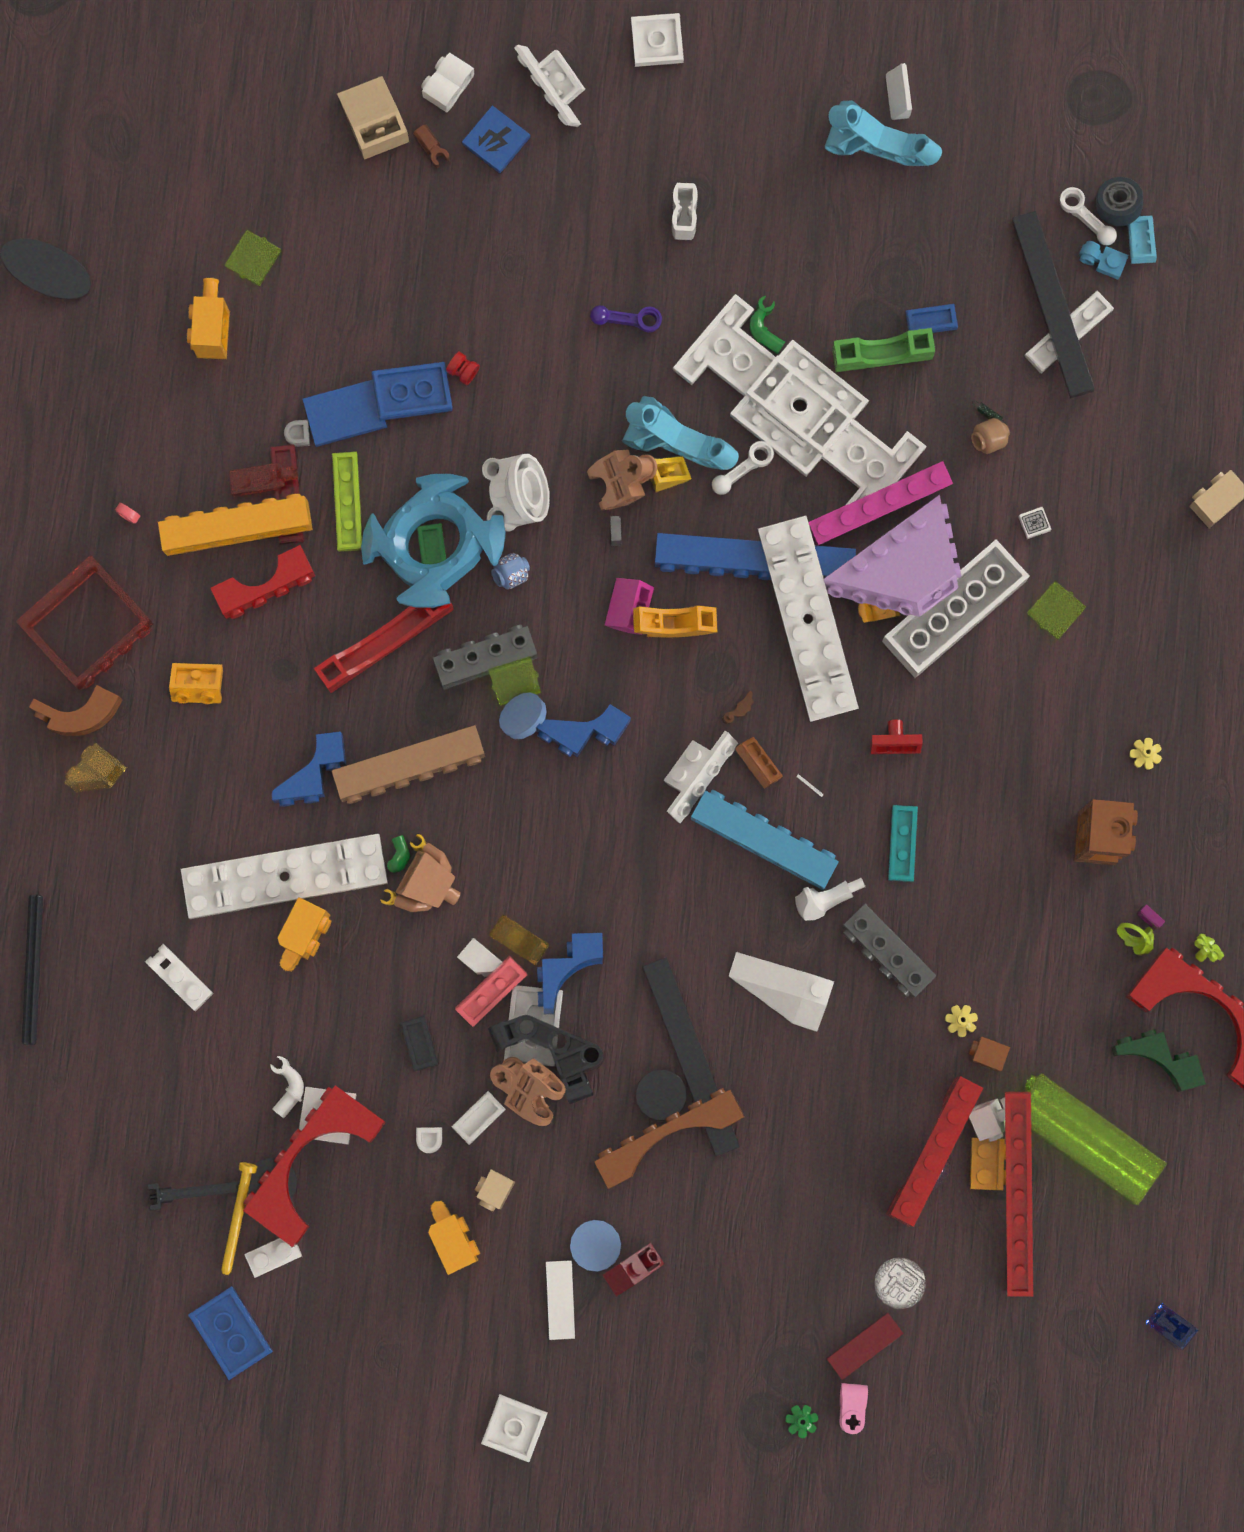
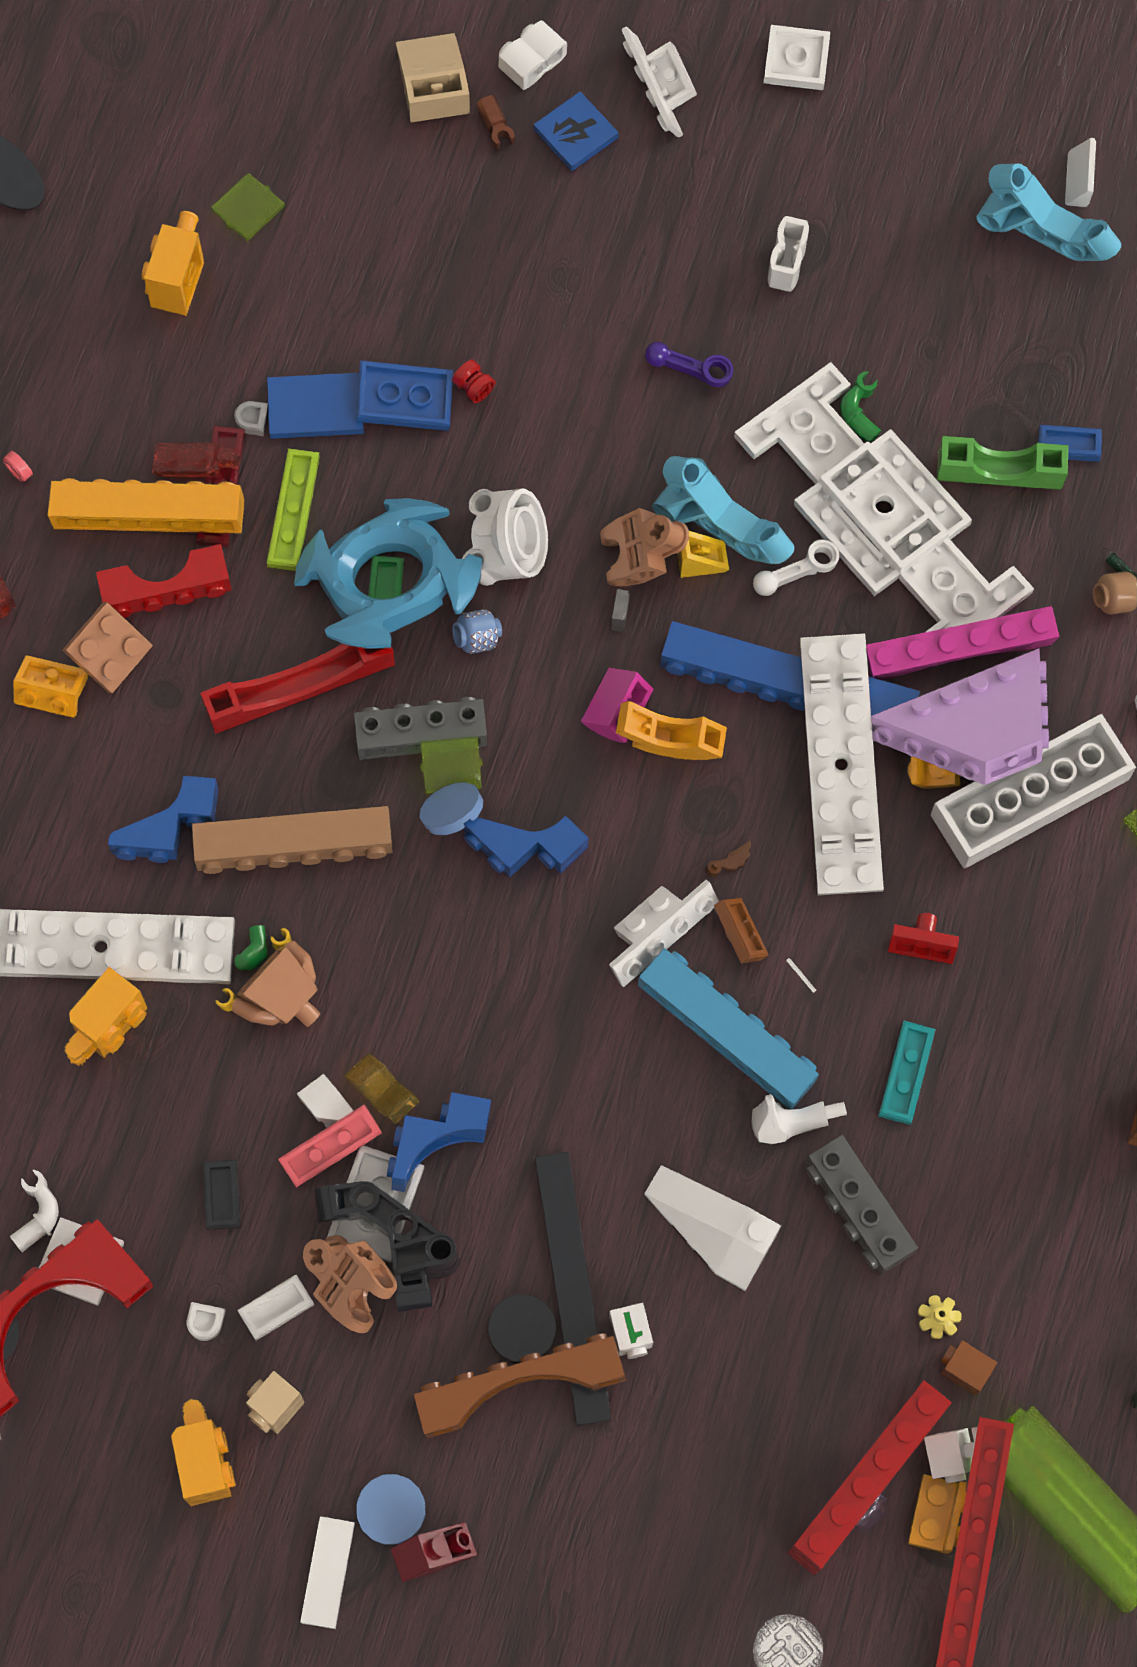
camera: 10 degrees right, 10 degrees down
(233, 645) = (107, 647): none -> nougat plate
(740, 1080) = (631, 1330): none -> white brick

